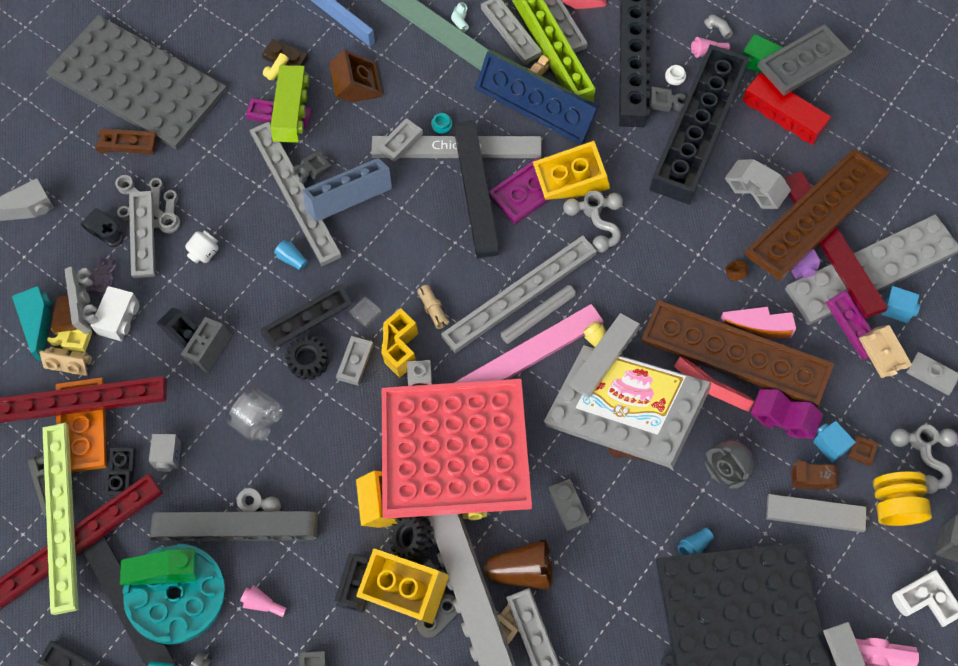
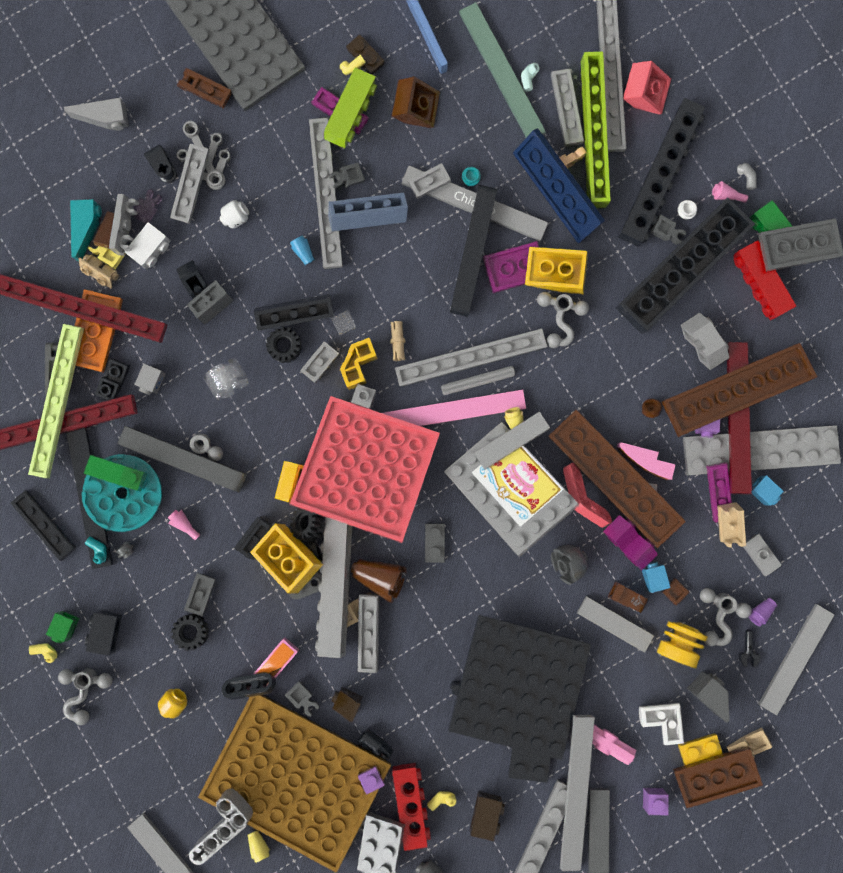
camera: 20 degrees right, 20 degrees up
(696, 542) = (512, 612): dark azure cone -> none

